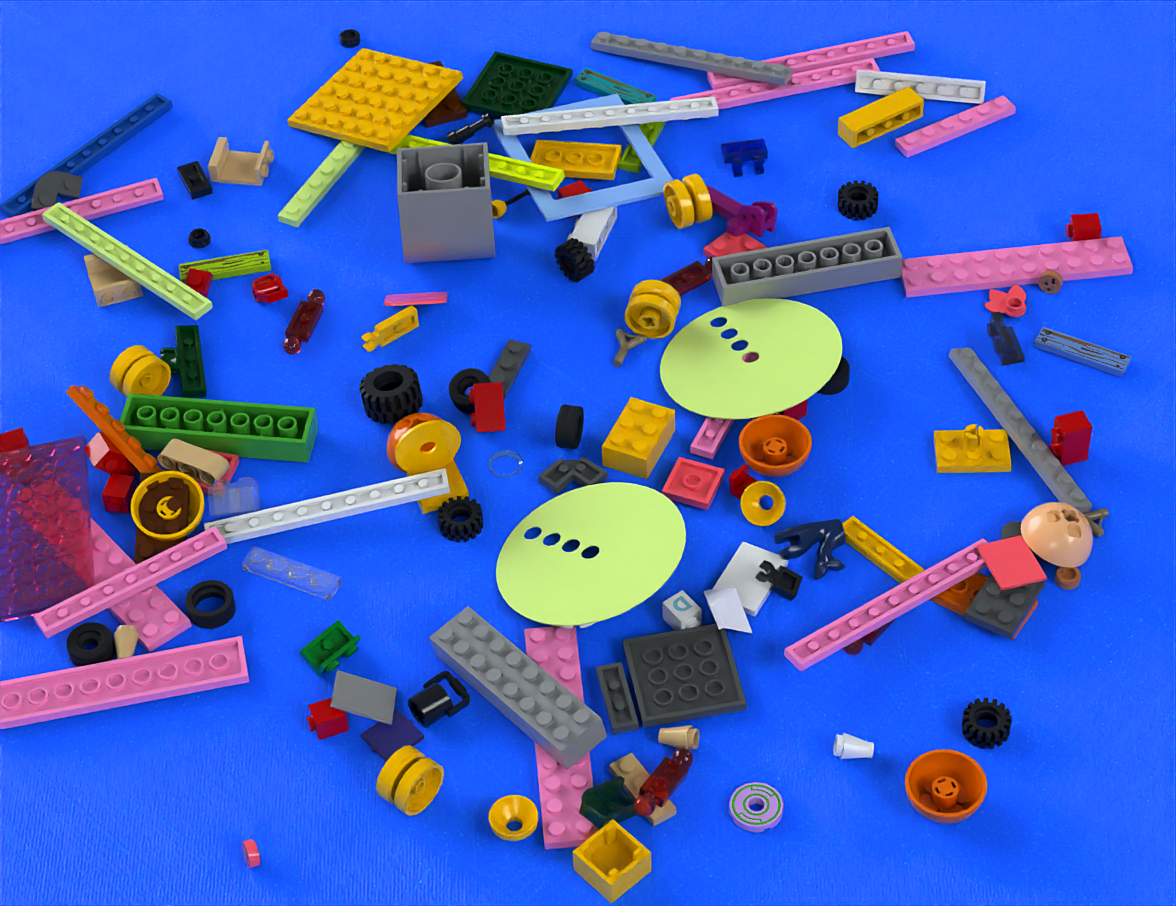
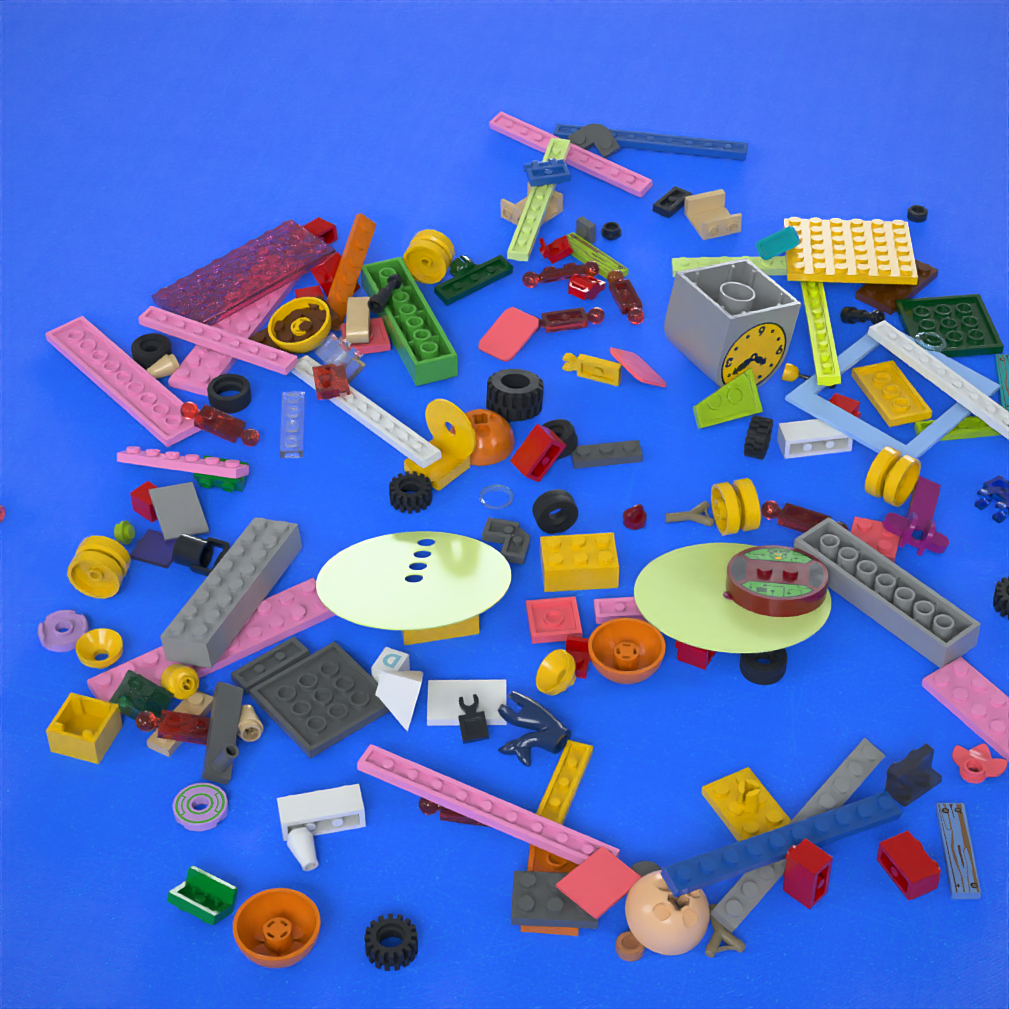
camera: 60 degrees right, 5 degrees down
(107, 238) = (547, 172): none -> blue plate
(186, 252) = (586, 229): none -> dark grey plate
(194, 432) = (379, 301): none -> black piece
(235, 300) = (551, 274): none -> clear red plate
(257, 624) = (219, 424): none -> clear red plate
(274, 513) = (330, 381): none -> clear red plate
(294, 367) = (508, 334): none -> coral piece
(297, 673) = (186, 463): none -> bright pink plate
(307, 267) = (625, 297): none -> clear red plate
(341, 130) = (778, 243): none -> teal piece
(358, 752) = (124, 532): none -> lime plate
(461, 858) = (62, 641): none -> lavender tile
(512, 259) = (729, 402): none -> lime wing
(528, 111) = (928, 347): none -> clear light blue piece
(603, 382) = (634, 517): none -> dark red tile
(604, 766) = (180, 681): none -> yellow head
(717, 773) = (222, 733): none -> dark grey piece
(758, 321) = (776, 581): none -> dark red piece
(819, 720) = (322, 811): none -> white brick
(868, 833) = (204, 896): none -> green bracket
(1039, 439) = (774, 844): none -> blue plate
(1086, 382) = (908, 865): none -> red brick

